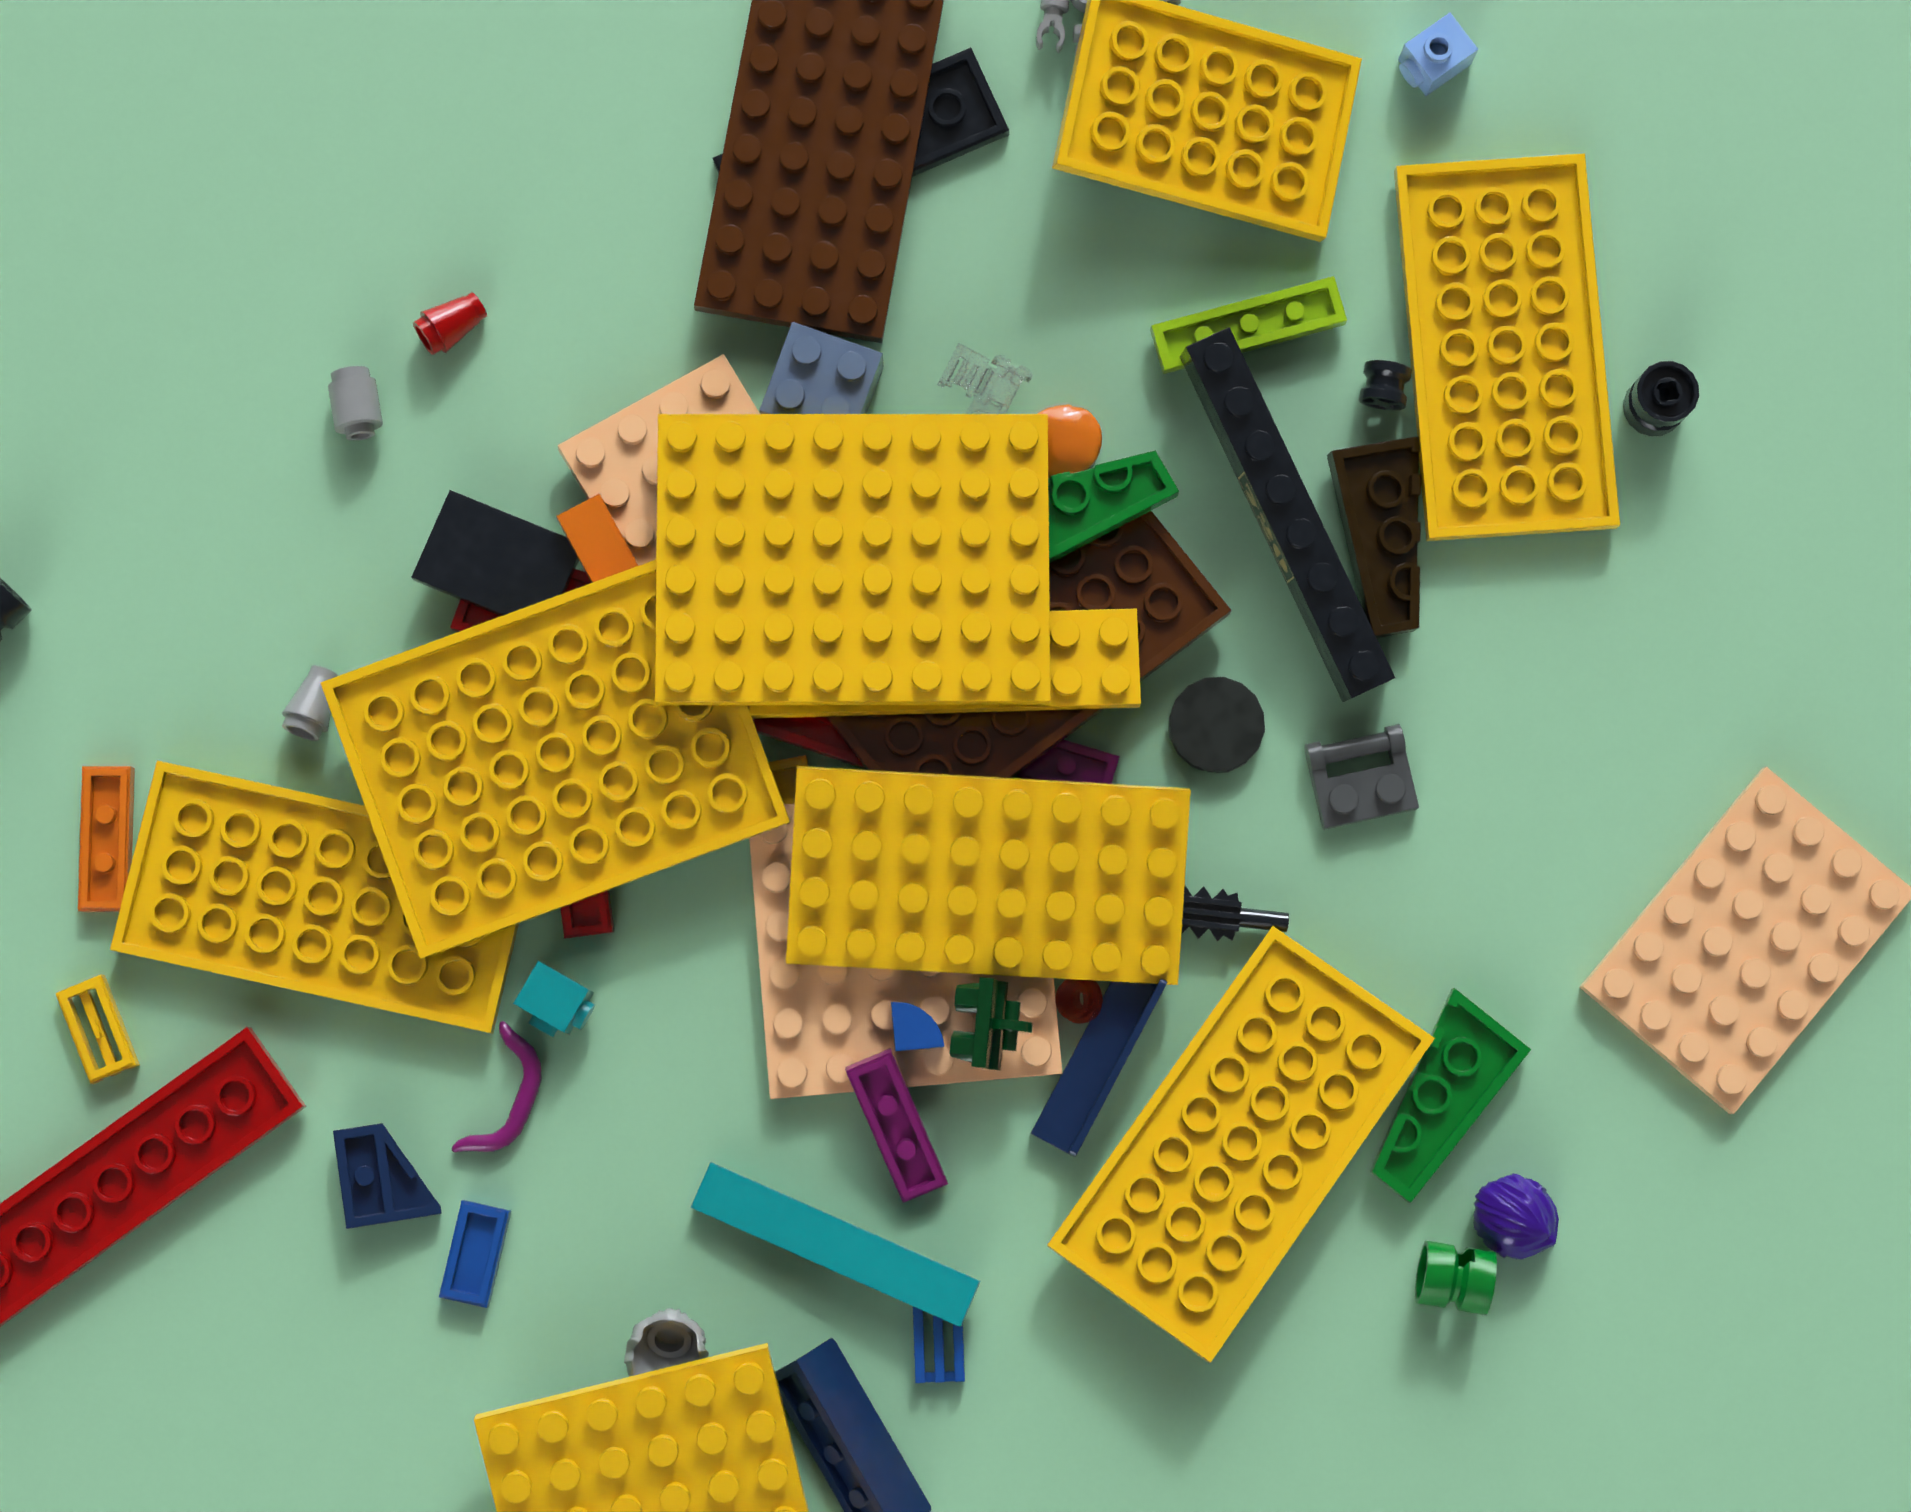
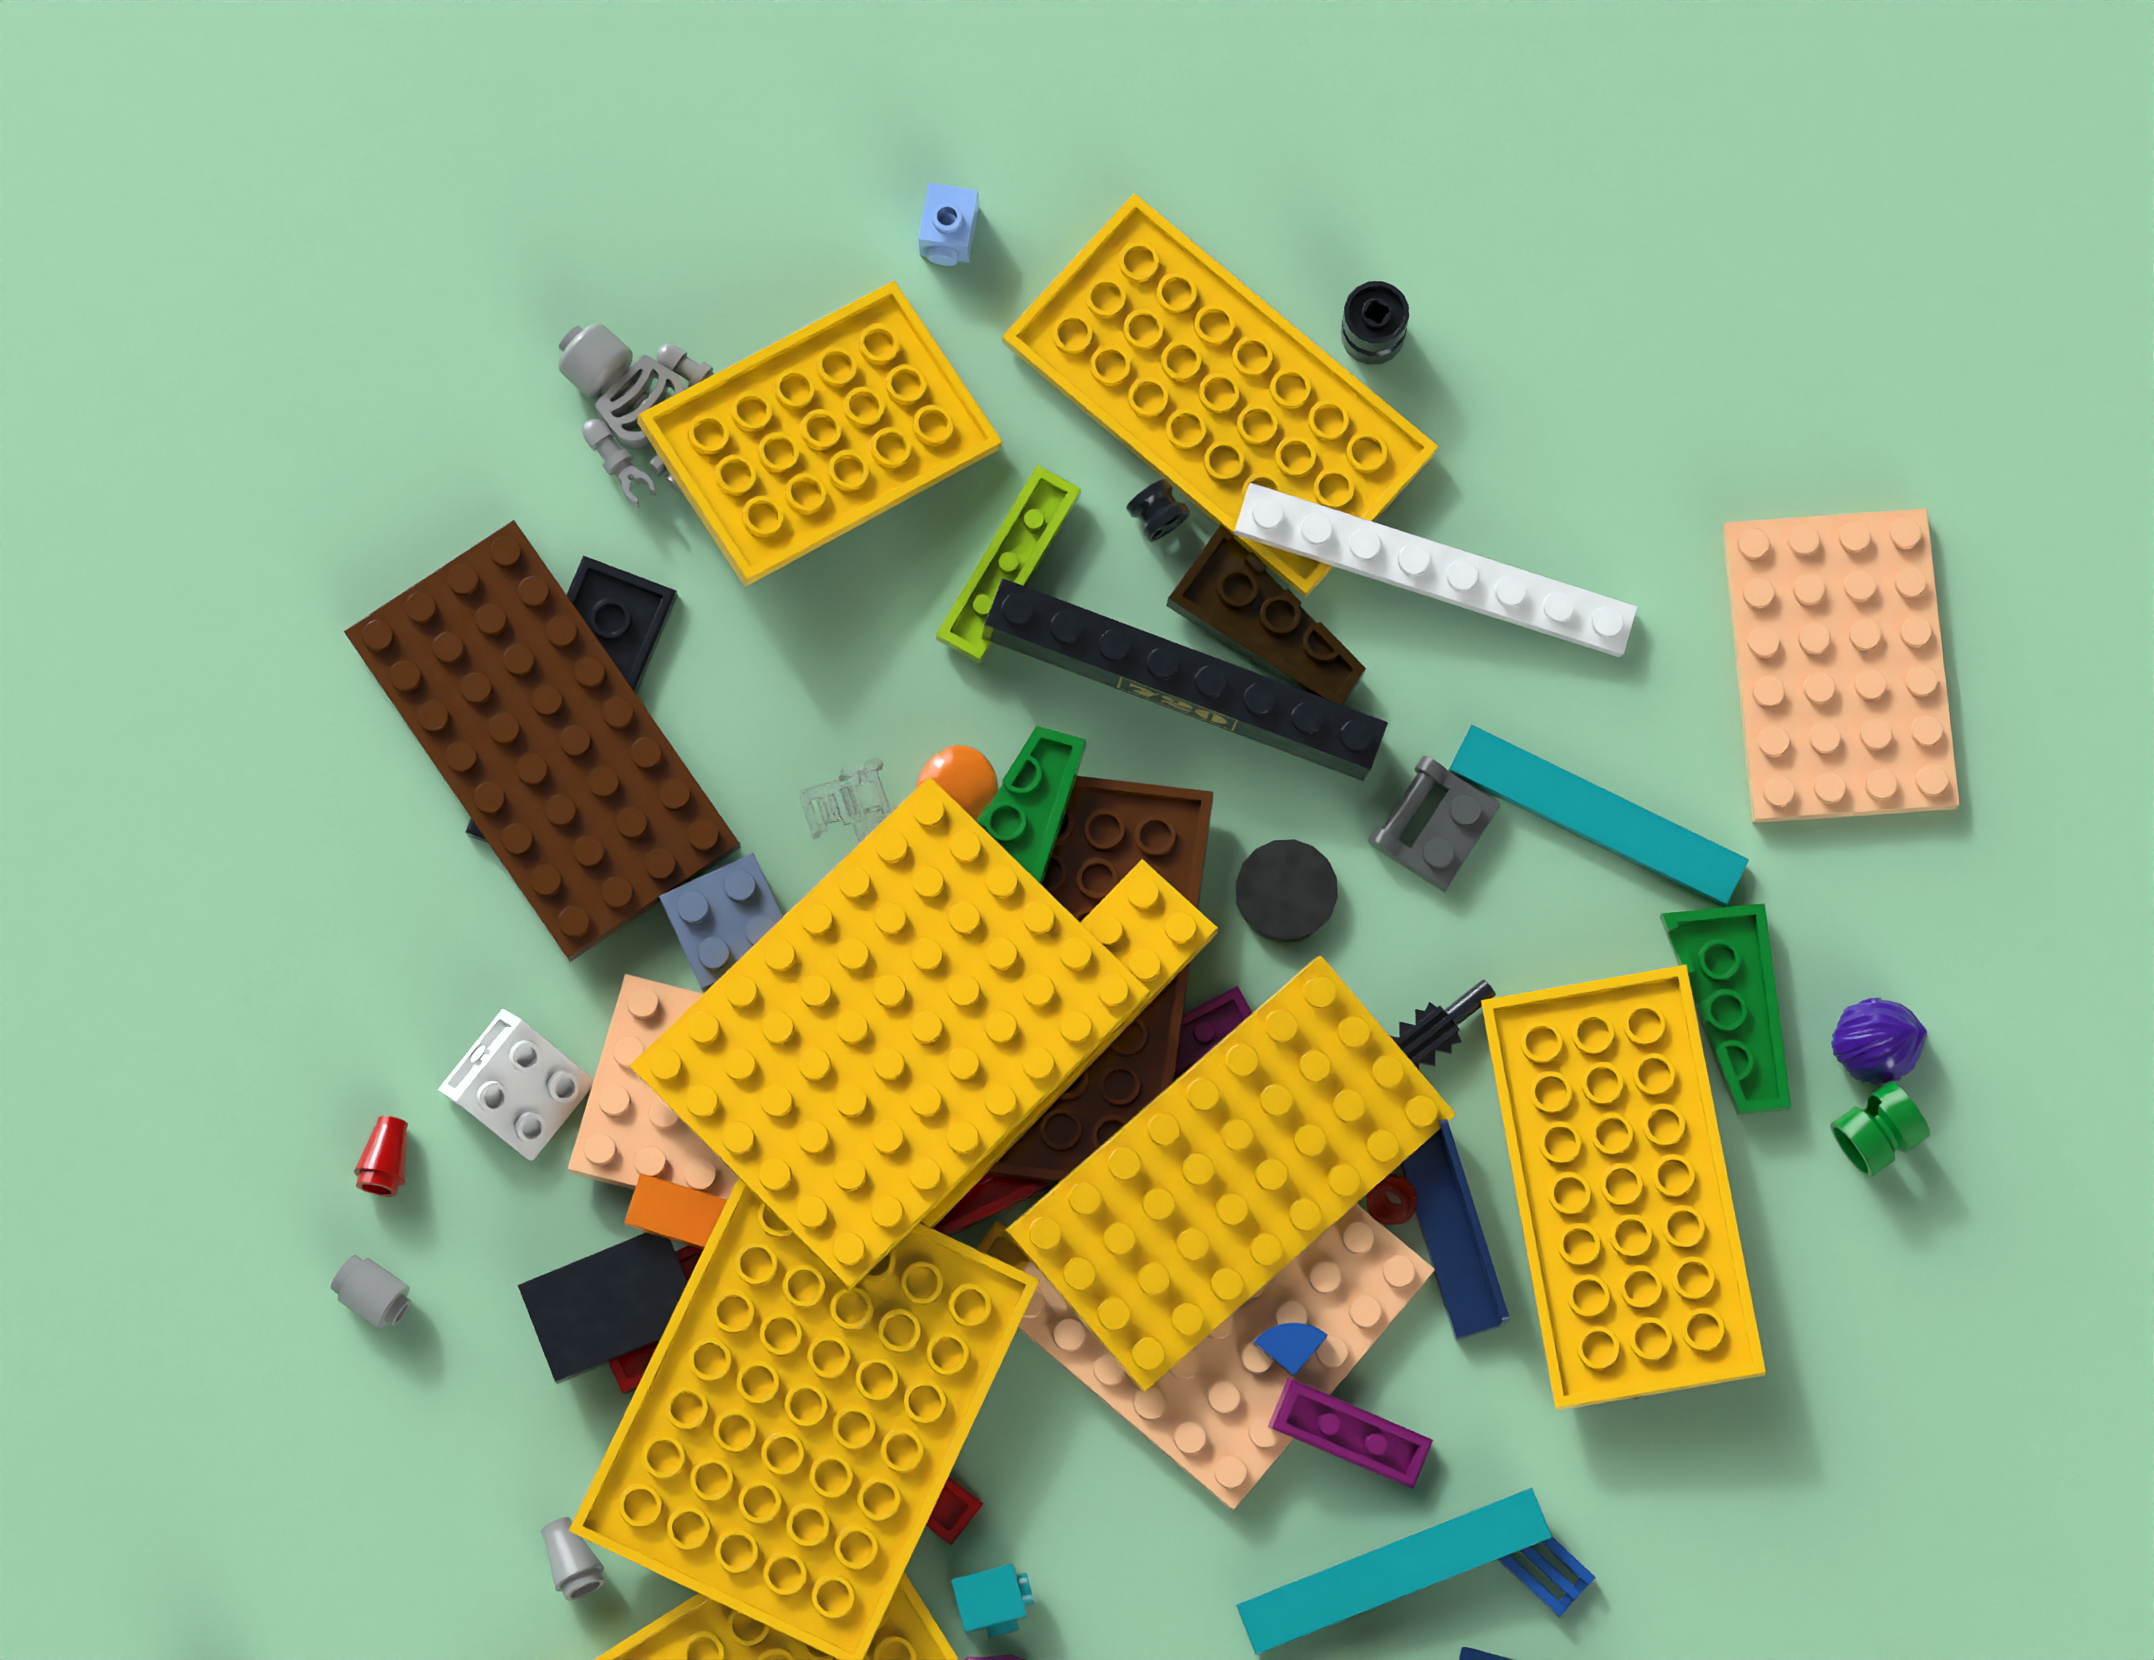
camera: 40 degrees left, 5 degrees down
(581, 359) = (517, 1084): none -> white bracket
(995, 1023) = (1327, 1268): dark green hips -> none
(1478, 880) = (1598, 816): none -> teal tile
(1533, 607) = (1435, 570): none -> white plate

